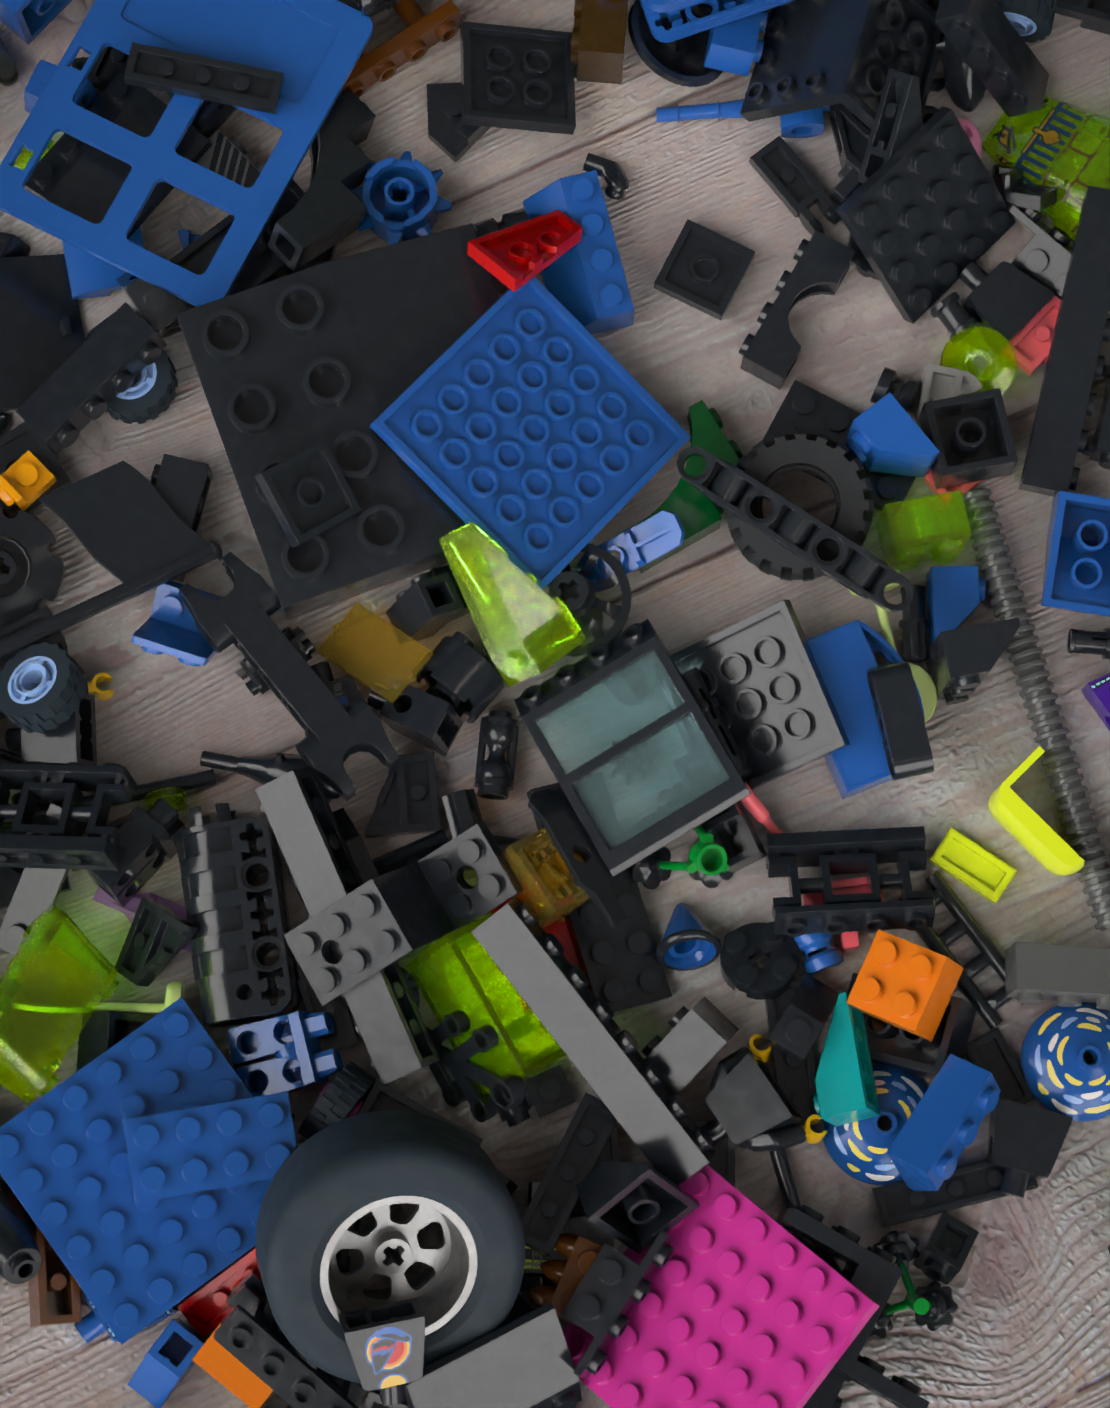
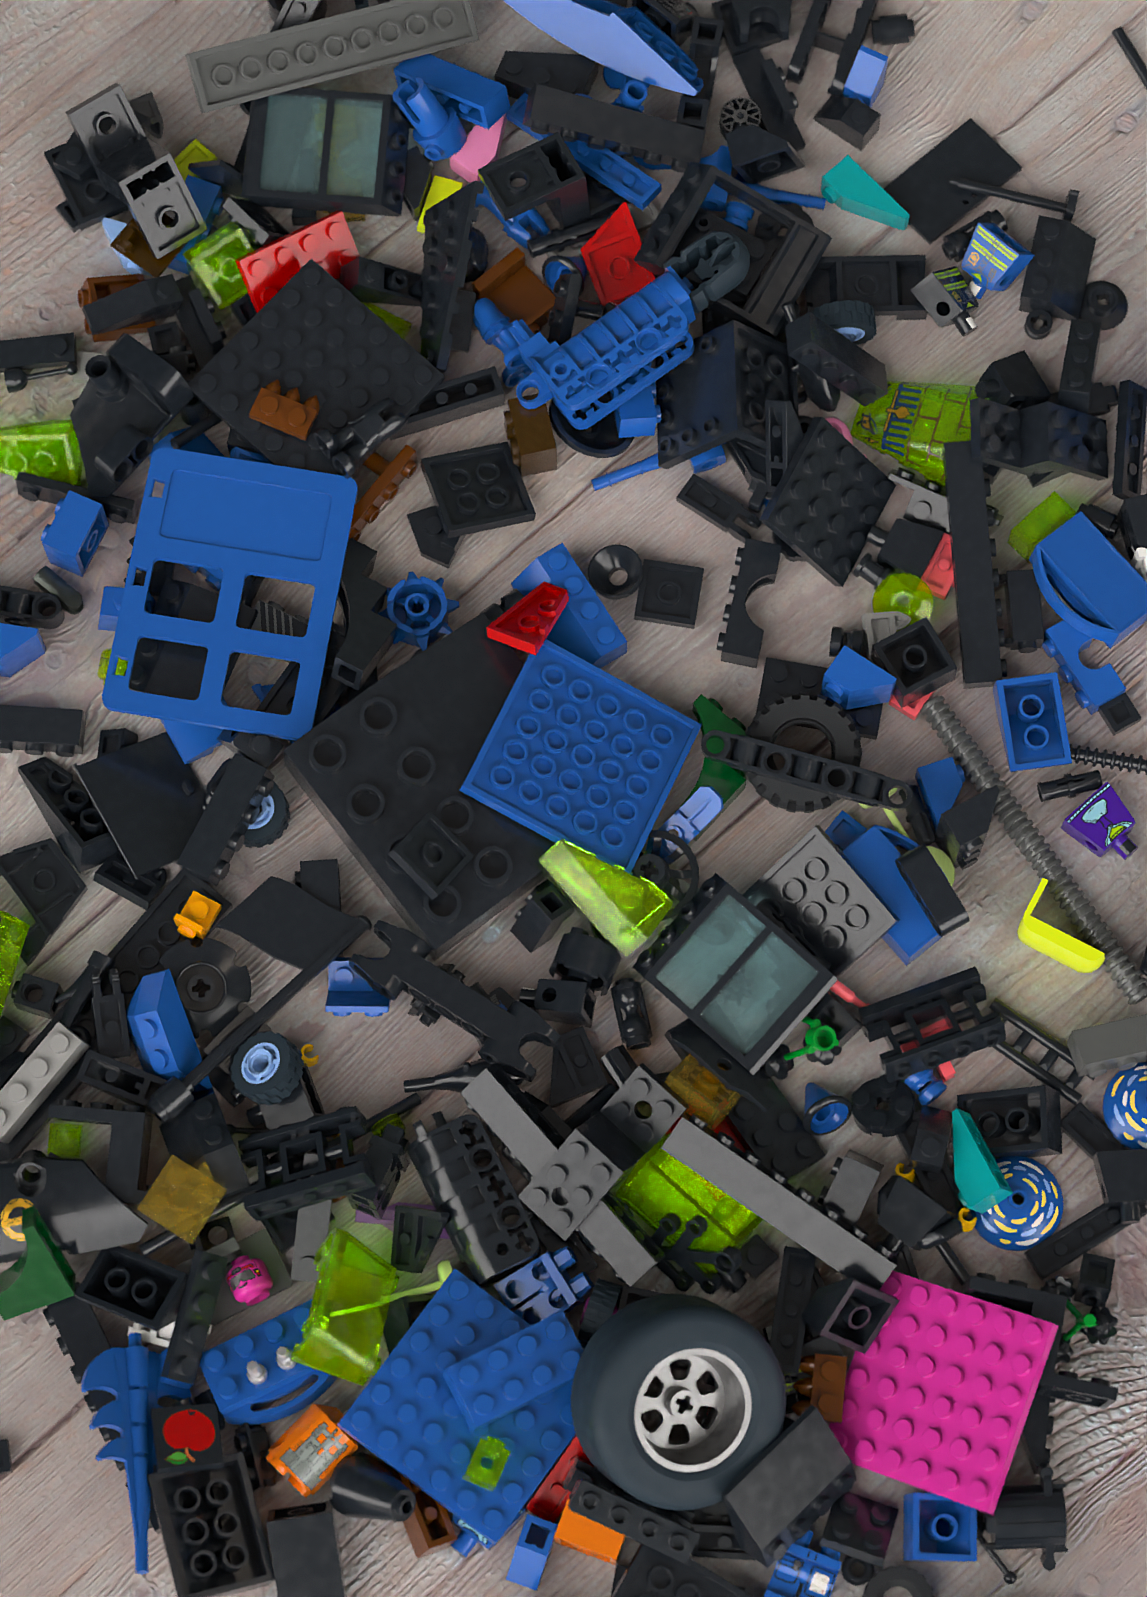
camera: 15 degrees left, 5 degrees down
(130, 1262) = (495, 1451): none -> clear neon green brick
(204, 78) = (242, 563): black plate -> none
(375, 652) = (513, 963): clear yellow piece -> none
(386, 1346) = (702, 1470): torso -> none
(608, 1294) = (853, 1387): black bracket -> none
(612, 174) = (573, 541): black arm -> none
(644, 210) = (607, 562): none -> black piece
(820, 615) = (844, 830): none -> blue plate
(905, 985) = (999, 1088): orange brick -> none
(923, 530) = (902, 742): clear neon green brick -> none
(943, 1124) = (1062, 1183): blue slope -> none
(972, 865) = (1021, 985): neon yellow tile -> none
(1029, 196) = (893, 463): black slope -> none

